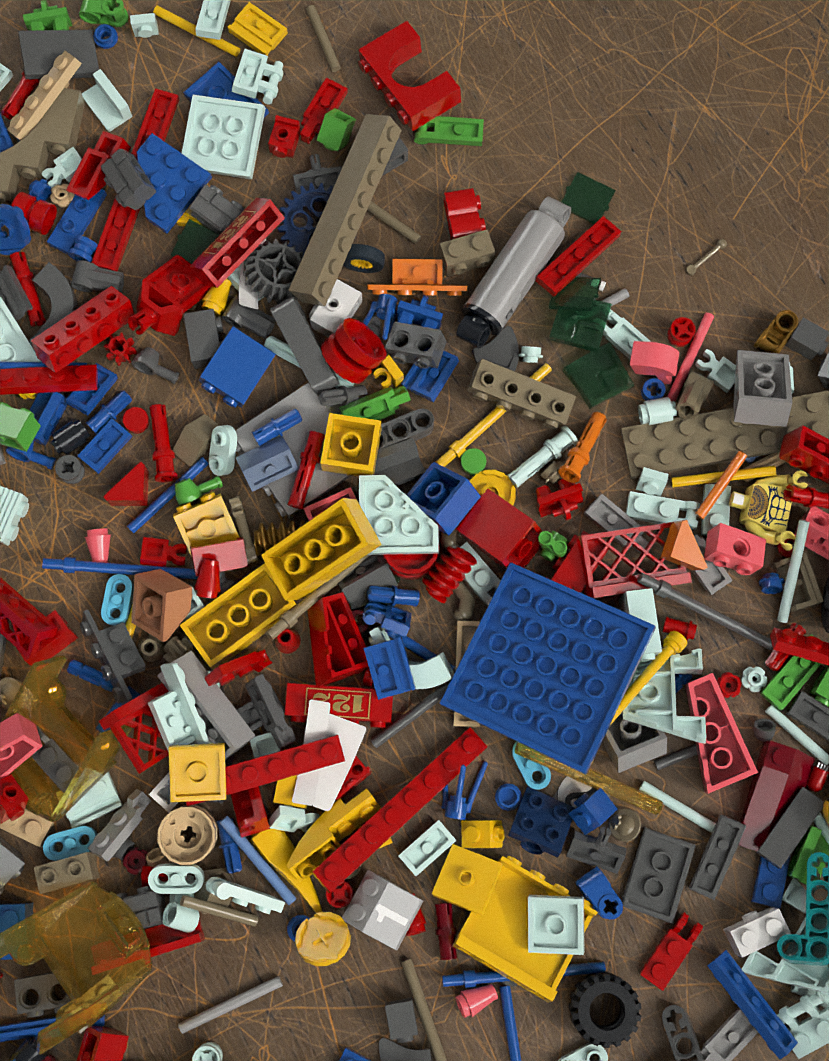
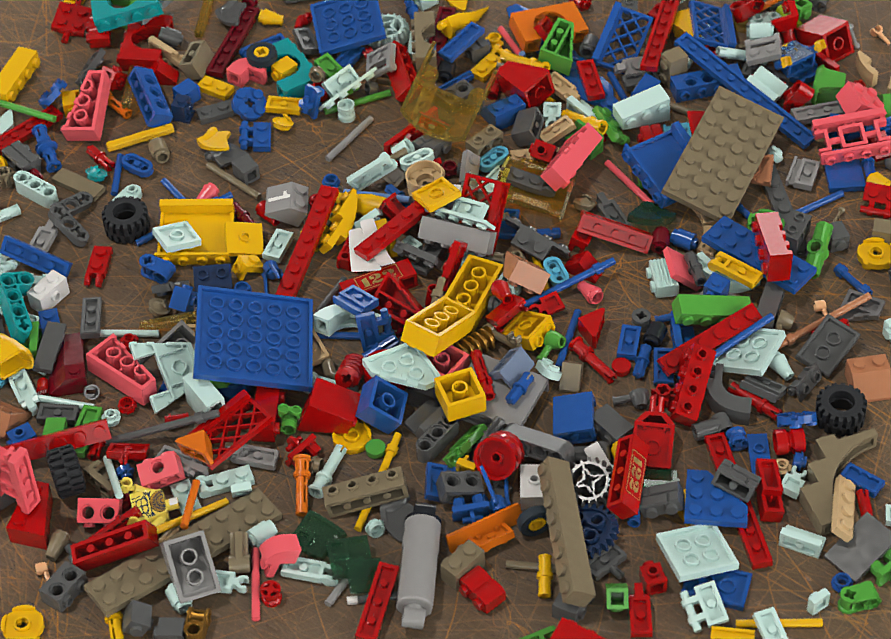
camera: 155 degrees right, 30 degrees down
(80, 593) = (580, 263): none -> red slope
(323, 939) = (313, 172): yellow tile -> none
(390, 196) = (544, 576): none -> yellow pin
(657, 875) = (125, 297): dark grey tile -> none
(673, 644) = (176, 405): yellow piece -> none
(681, 797) = (128, 338): none -> red plate
(757, 608) = (124, 451): none -> red plate

